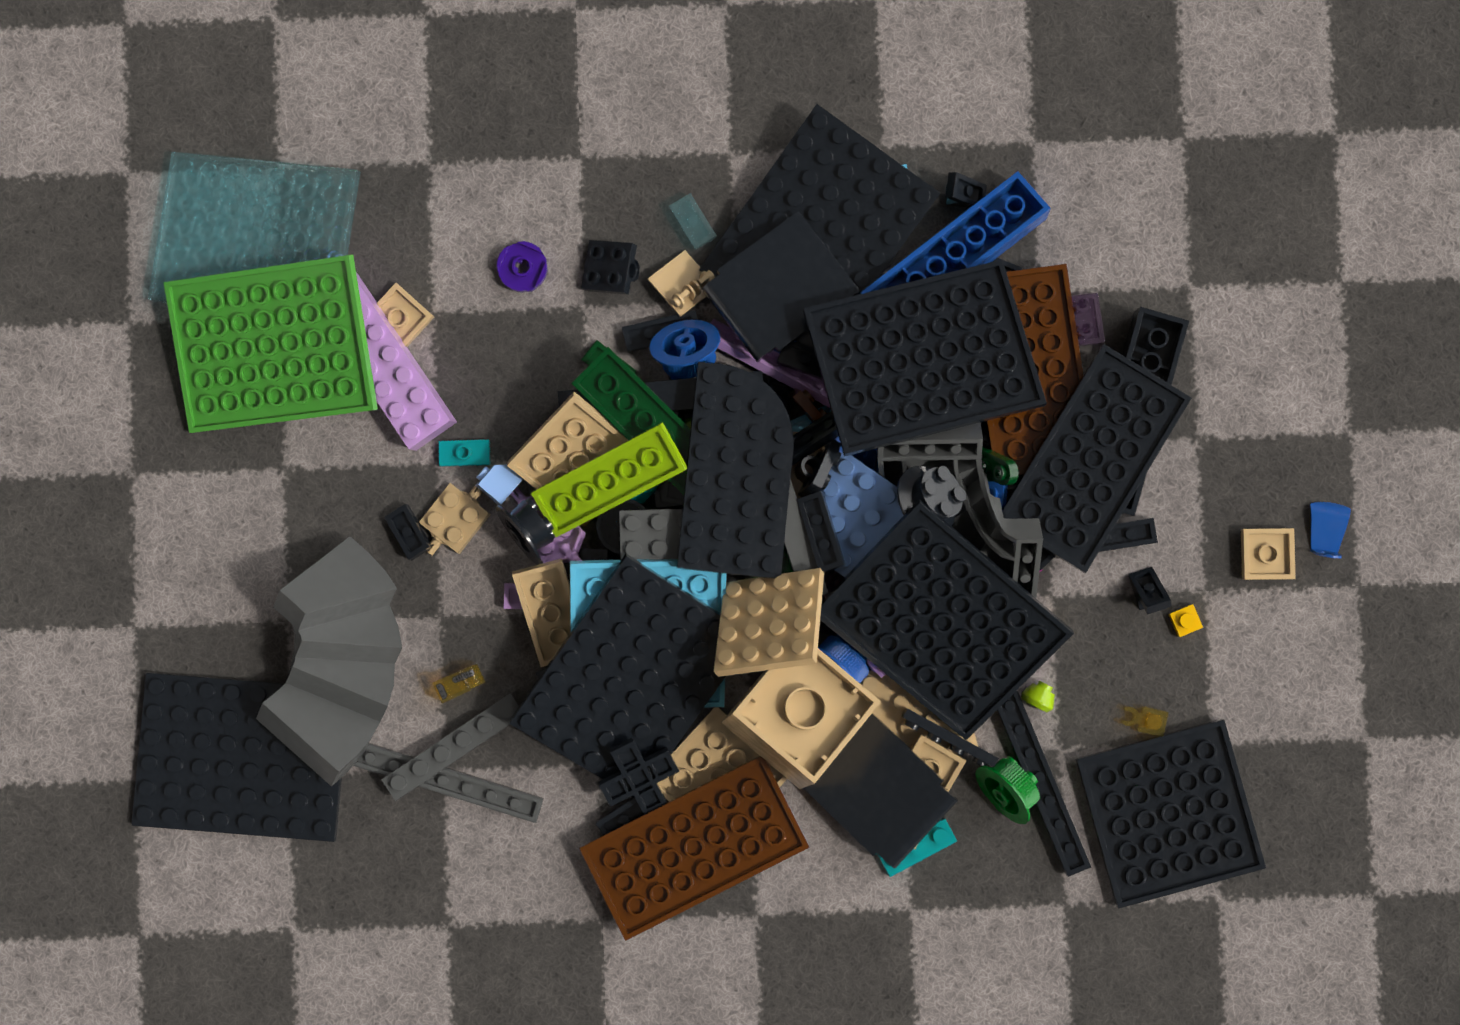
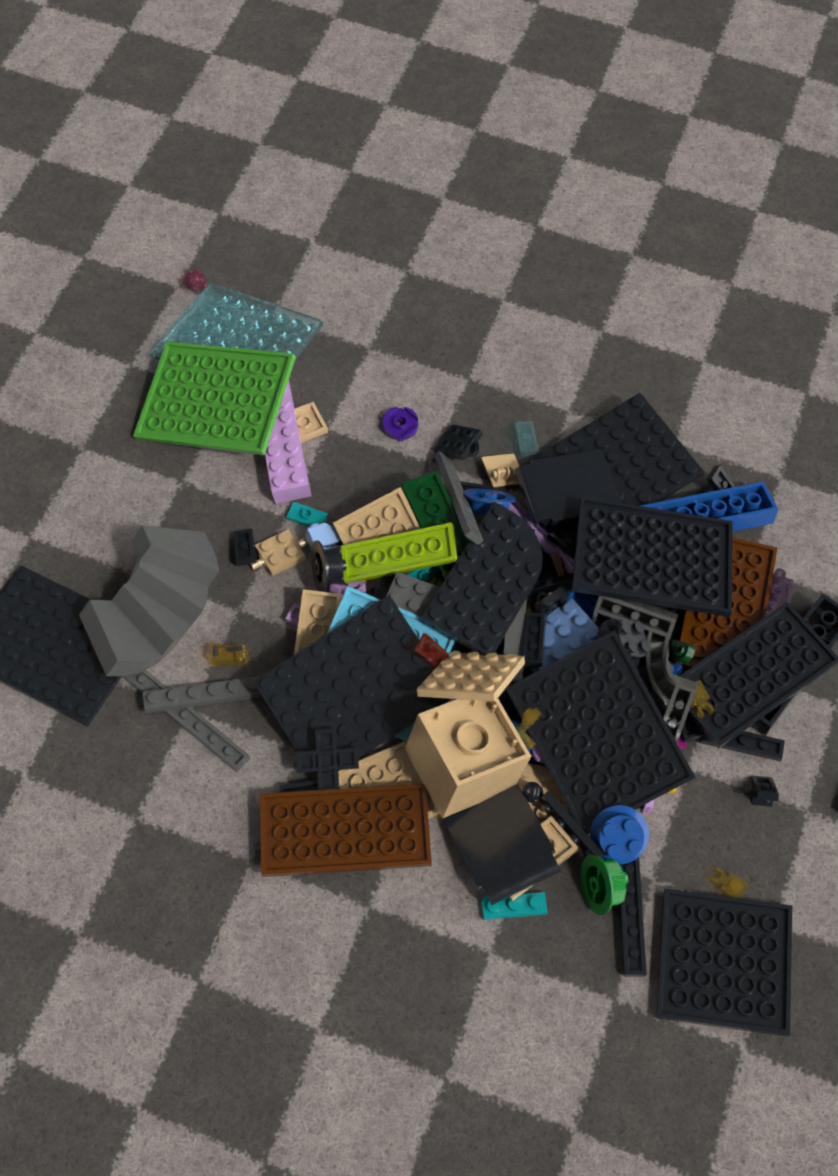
camera: 20 degrees right, 25 degrees down
(149, 154) = (196, 279): none -> clear pink plate
(649, 369) = (458, 499): none -> dark grey tile
(705, 603) = (430, 650): none -> clear red slope
(857, 641) = (530, 718): none -> clear yellow plate
(888, 712) = (532, 792): none -> black plate
(1007, 726) = (620, 833): none -> blue piece
(1039, 696) = (656, 831): lime cone -> none
(1045, 519) = (700, 699): none -> clear yellow plate
(1185, 620) = (785, 824): yellow plate -> none

